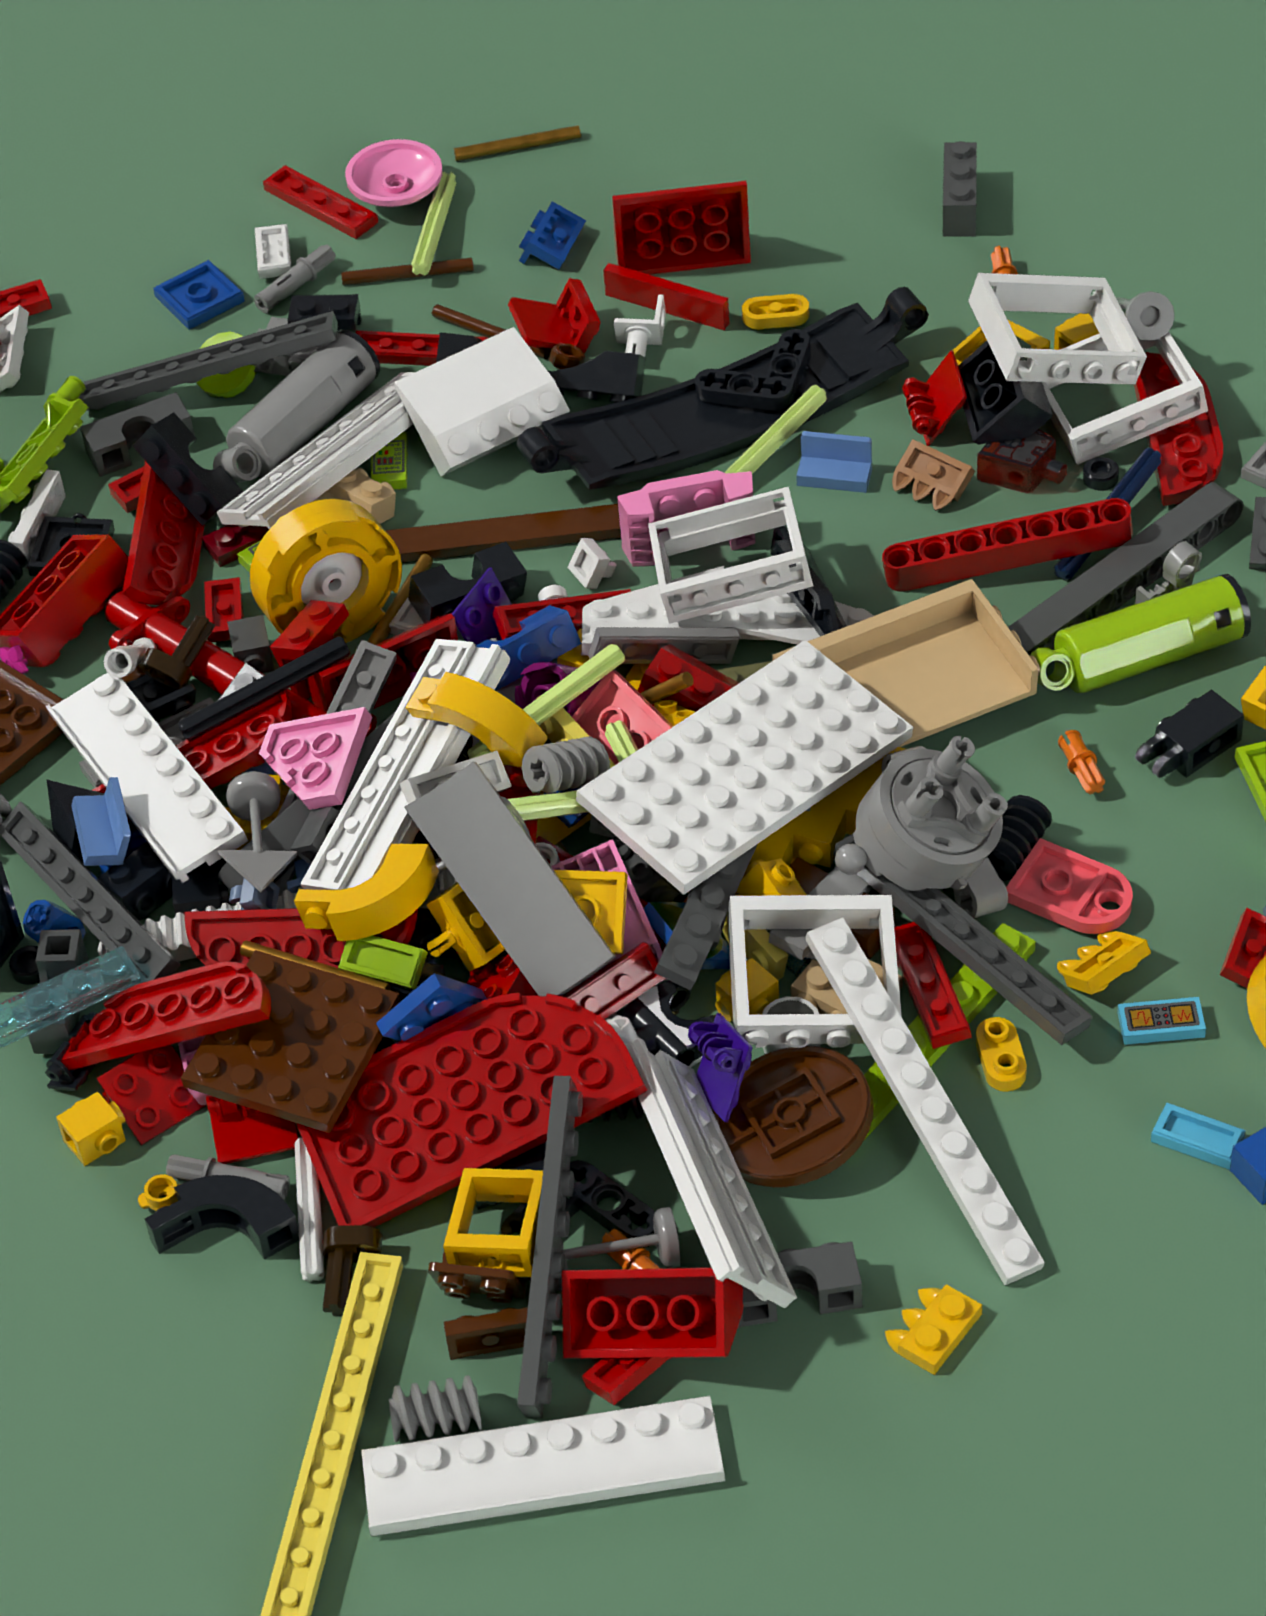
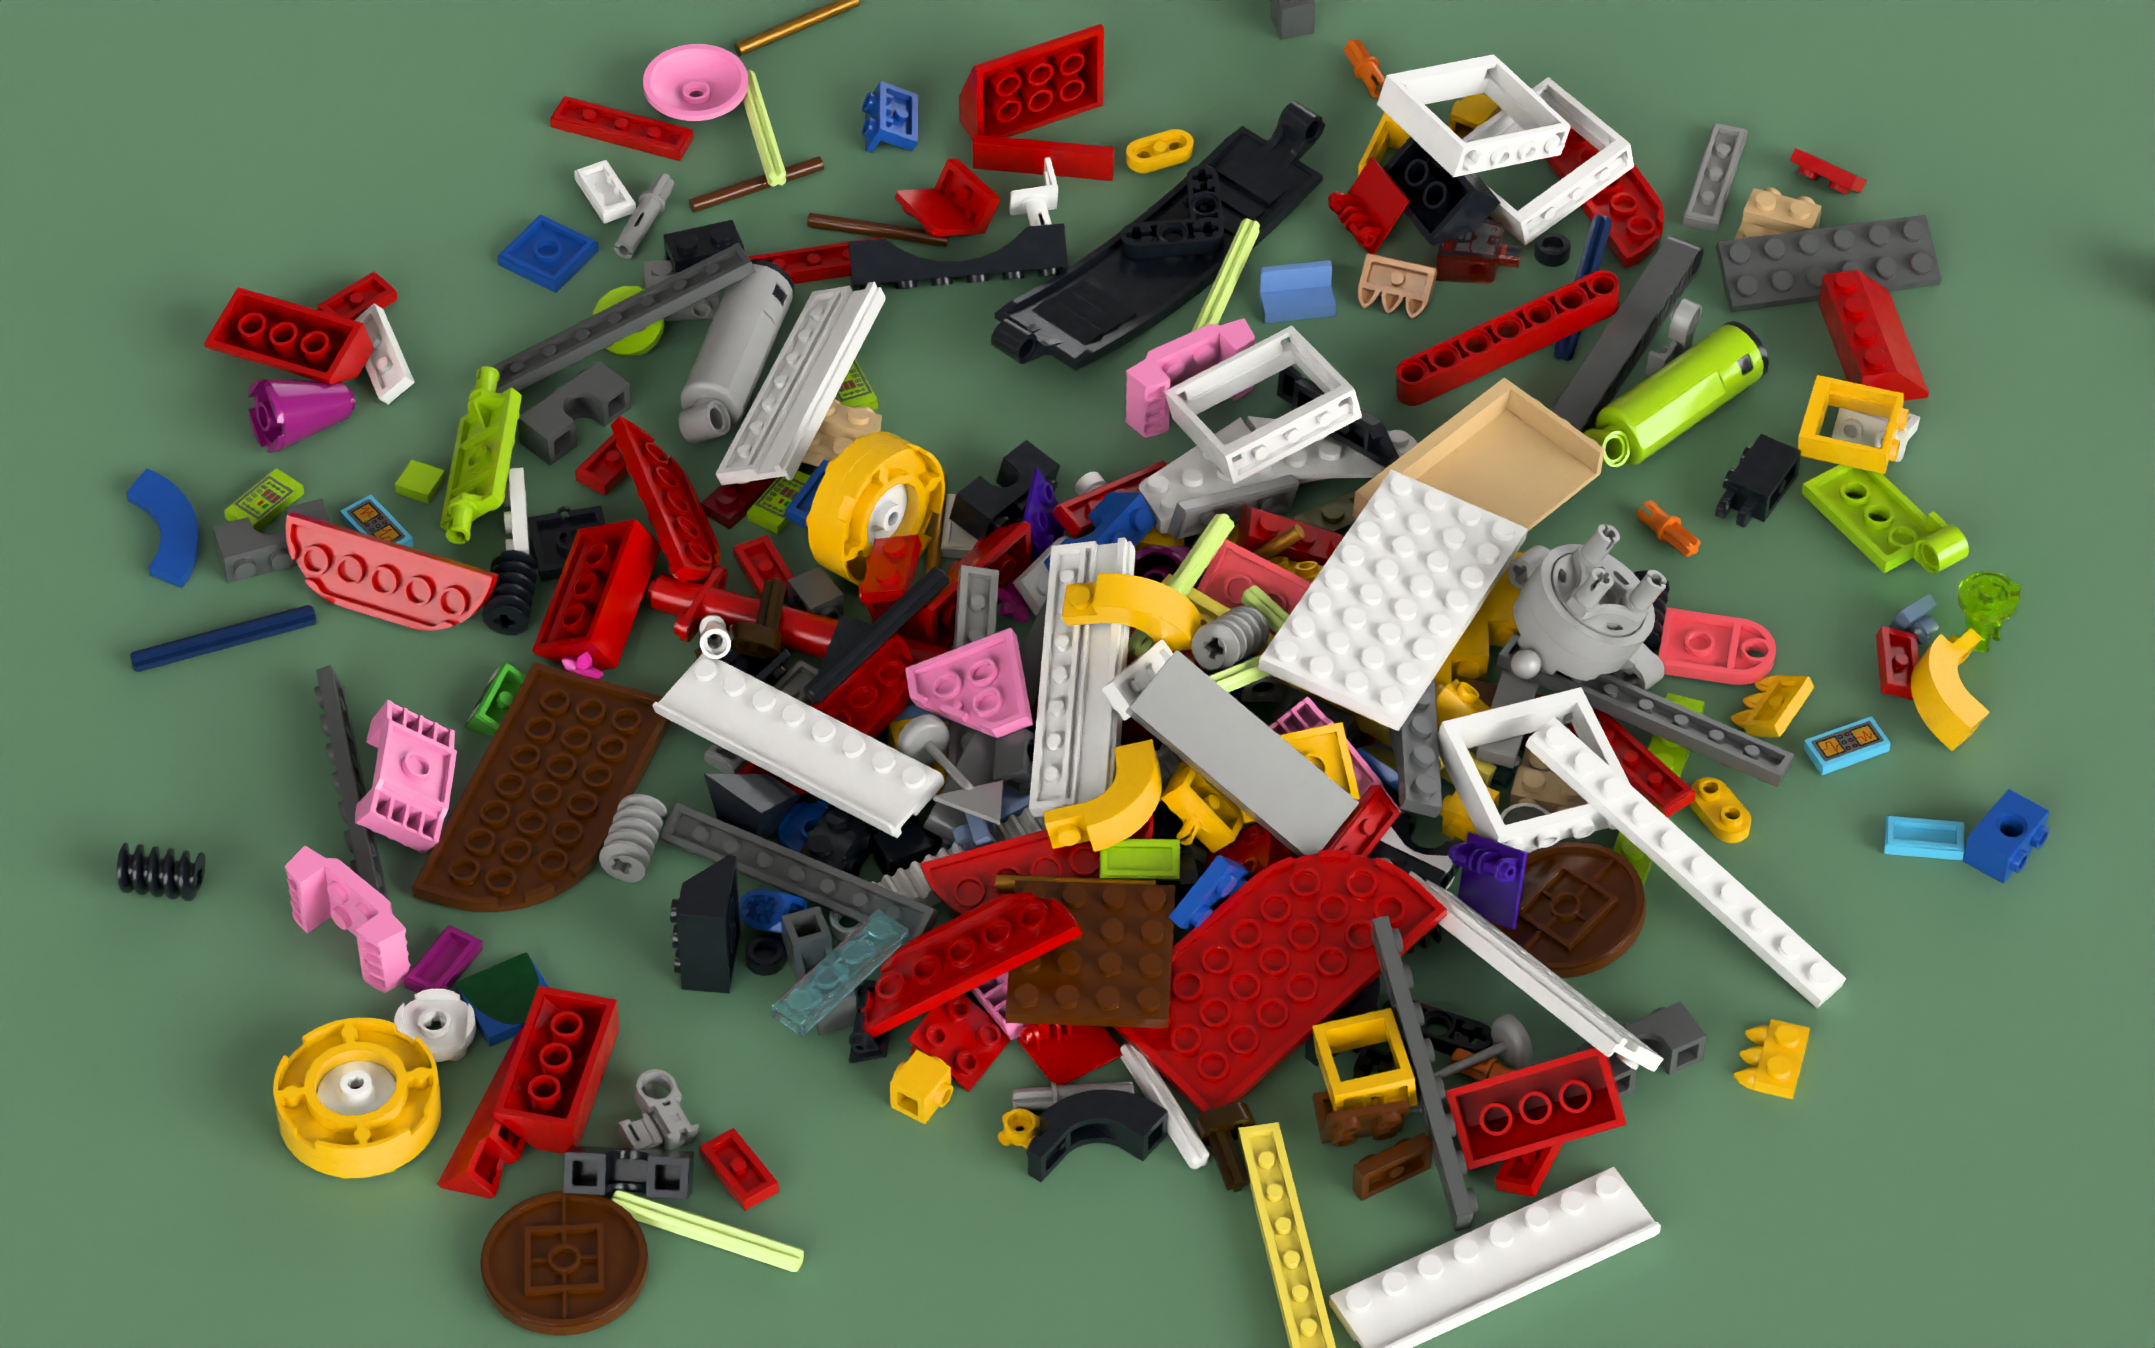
camera: 25 degrees left, 0 degrees up
(102, 826) = (791, 801): medium blue panel -> none
(167, 452) = (643, 422): black arch -> none
(434, 1408) = (1380, 1237): light grey piece -> none
(479, 400) = (924, 303): white slope -> none
(517, 530) = (1029, 423): reddish brown tile -> none
(566, 356) = (976, 241): reddish brown tile -> none
(590, 563) = (1109, 444): white tile -> none
(1148, 314) = (1551, 81): light grey piece -> none

